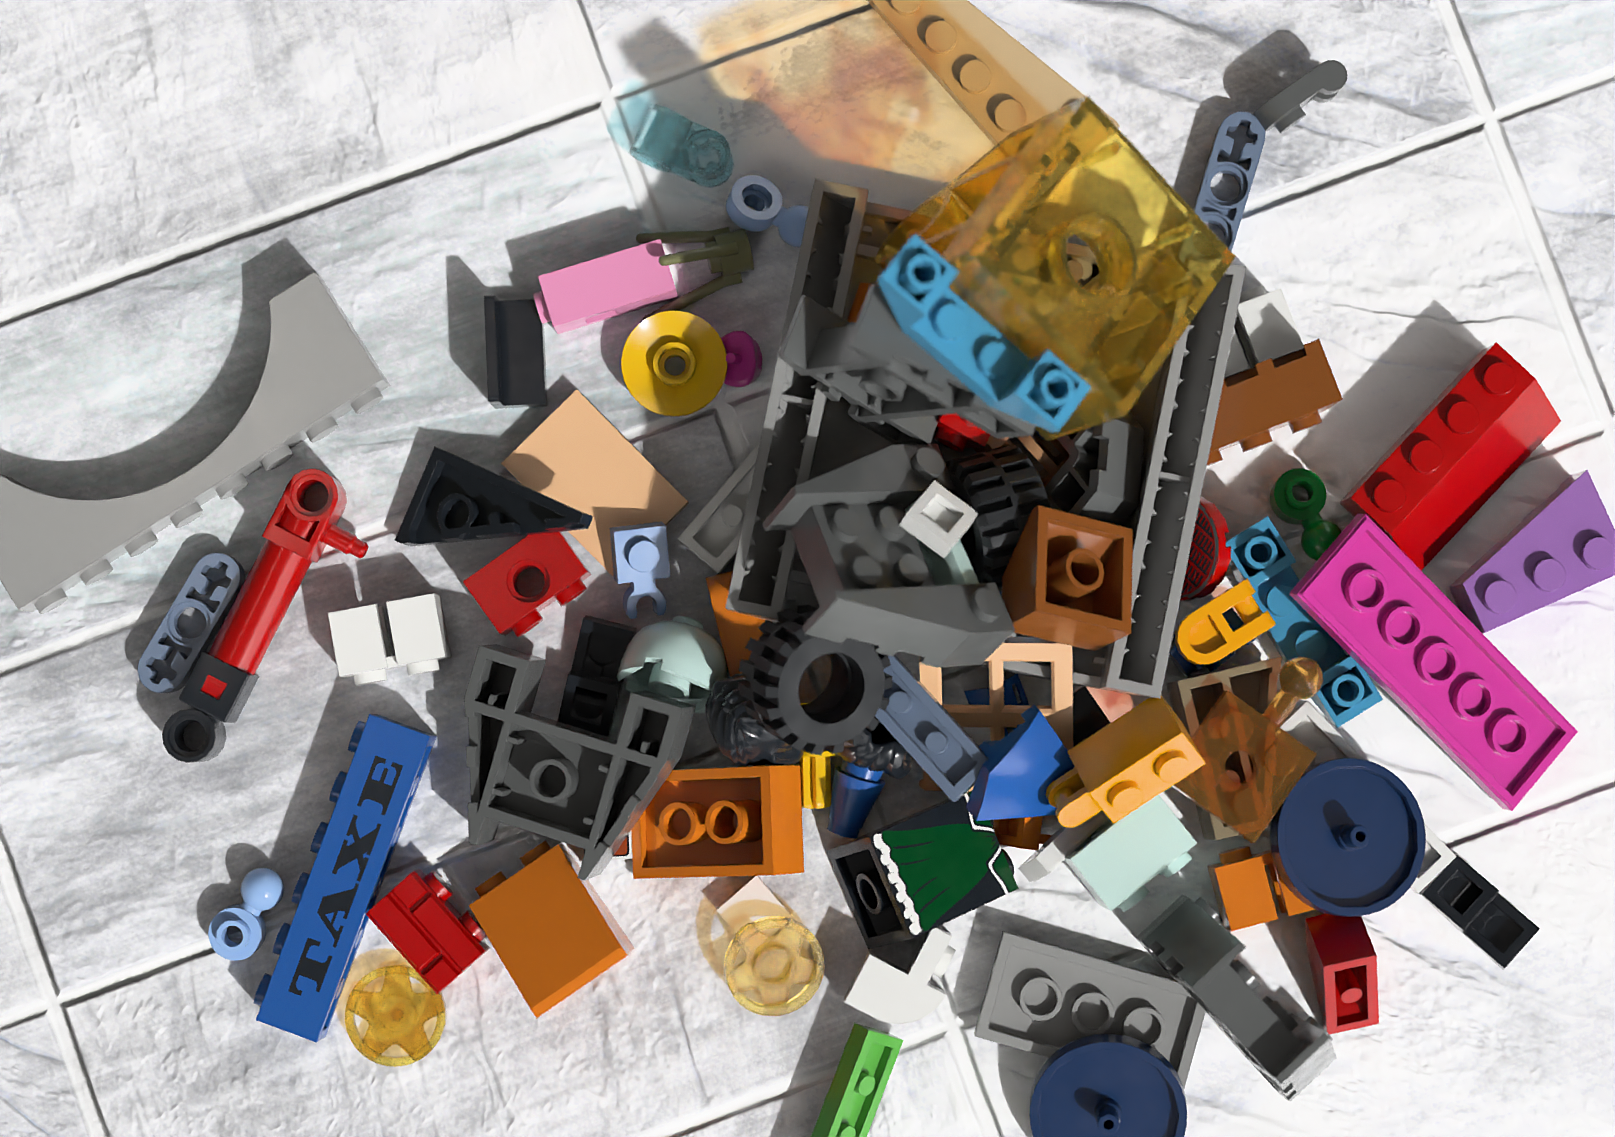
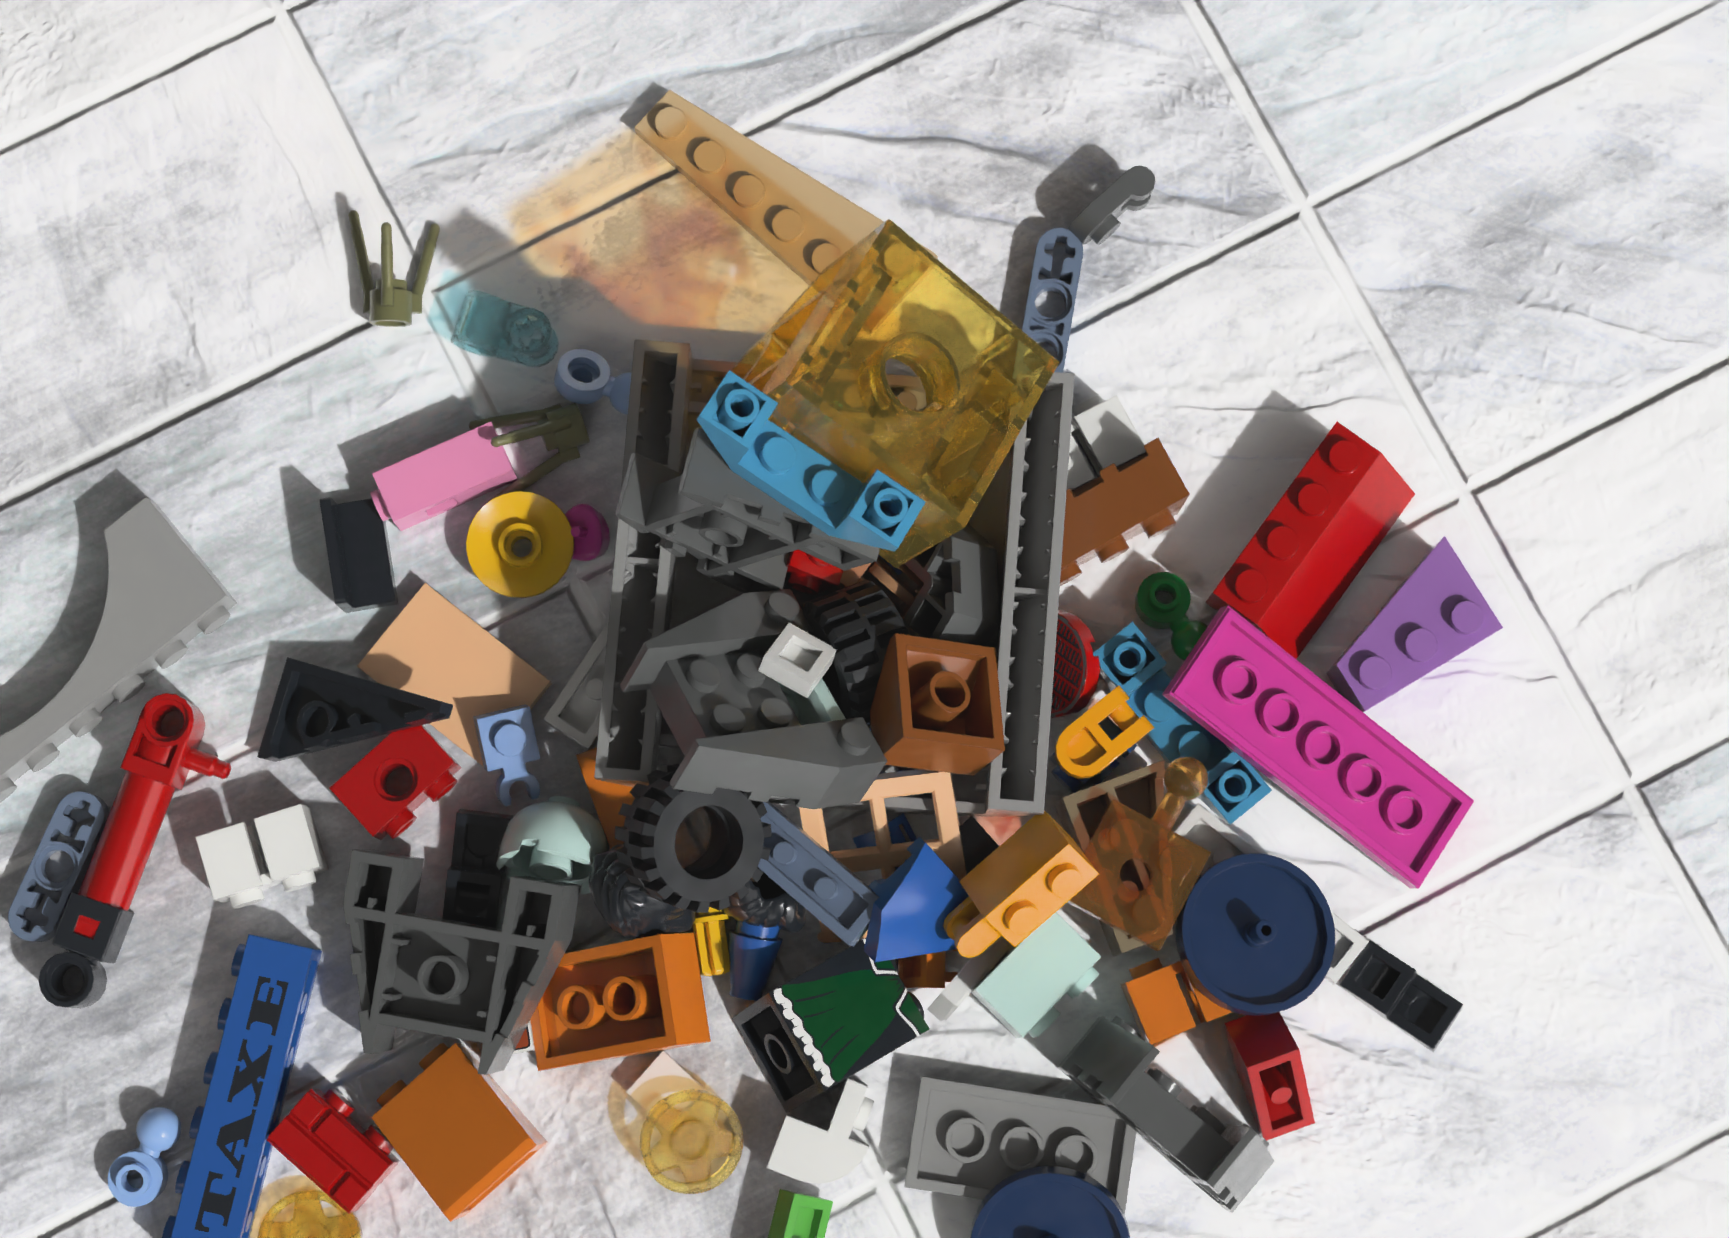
camera: 10 degrees left, 5 degrees down
(573, 104) = (390, 301): none -> olive plant

